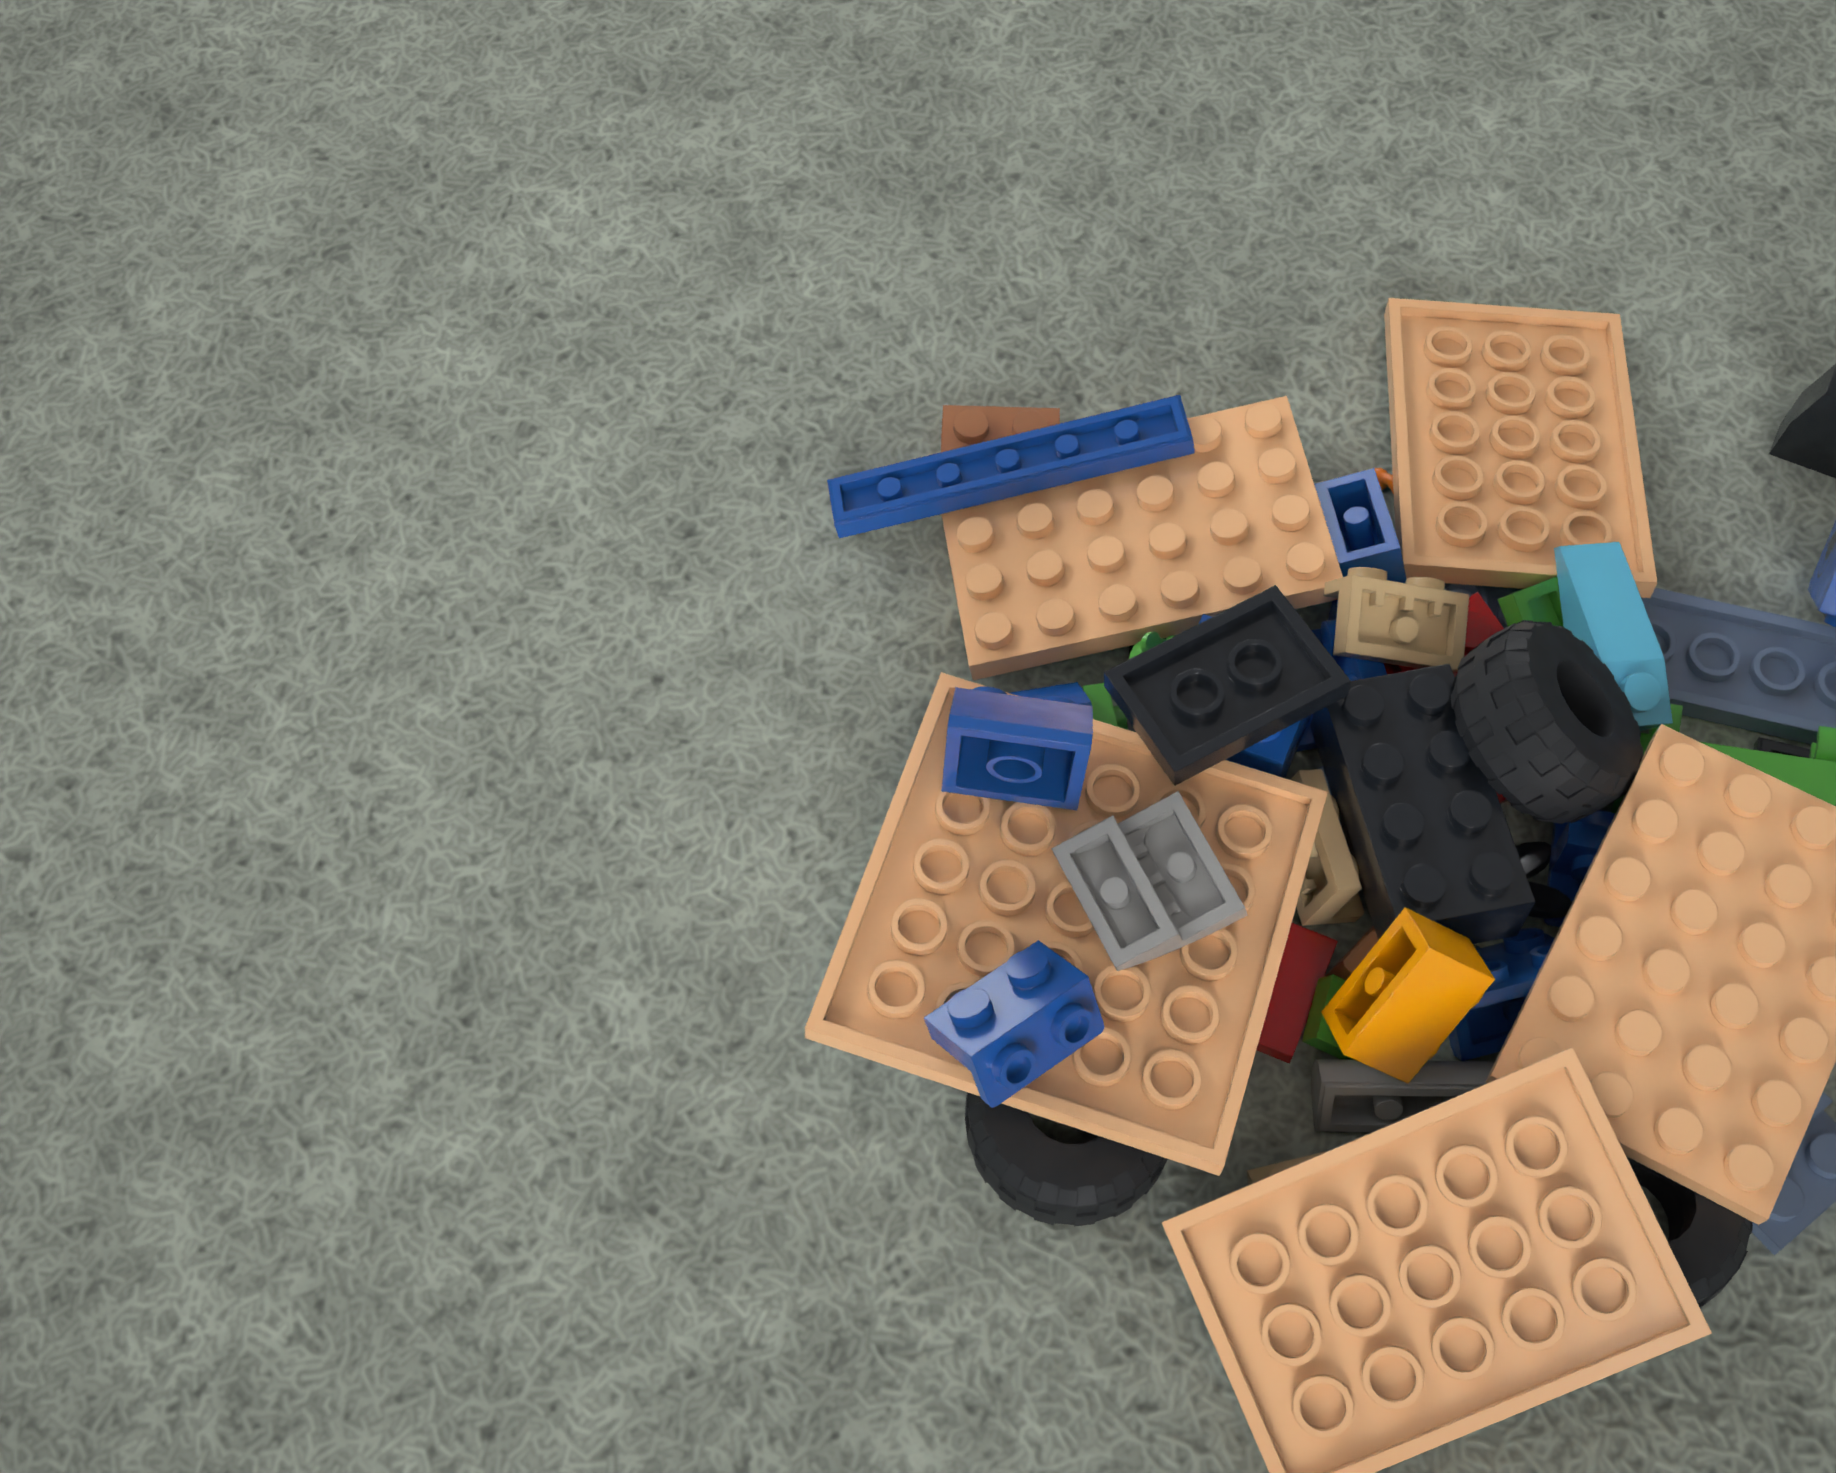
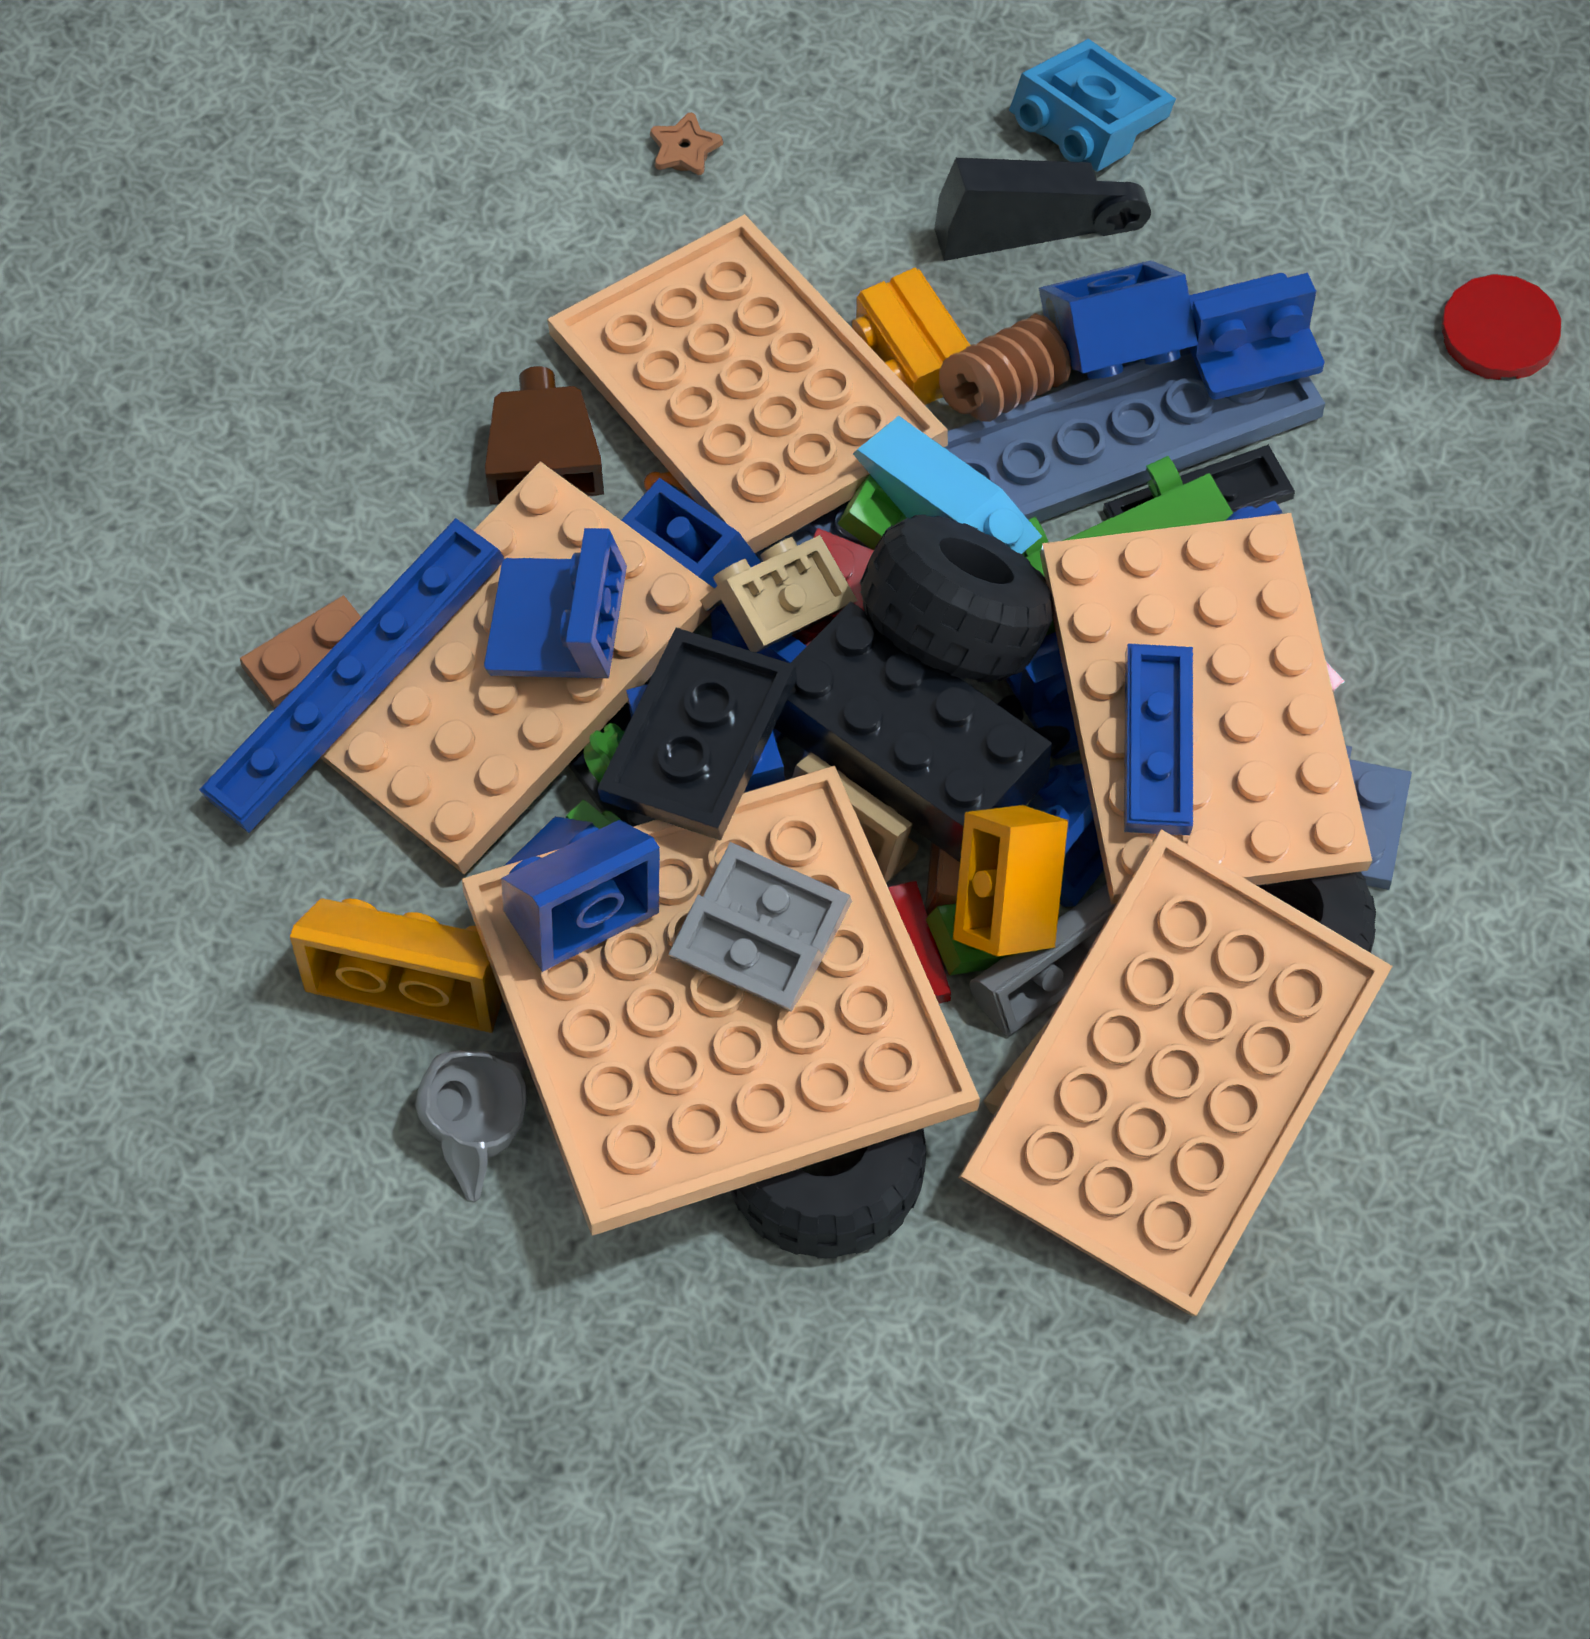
camera: 40 degrees left, 0 degrees up
(815, 865) = (473, 1109): none -> light grey piece
(851, 699) = (396, 963): none -> light orange slope
(1018, 1021) = (750, 1099): blue bracket -> none
(1200, 517) = (558, 612): none -> blue bracket
(1319, 380) = (541, 426): none -> reddish brown torso
(1611, 248) = (689, 158): none -> nougat plate
(1637, 966) = (1158, 739): none -> blue tile
(1691, 496) = (909, 330): none -> light orange brick
(1751, 567) = (1005, 369): none -> nougat piece

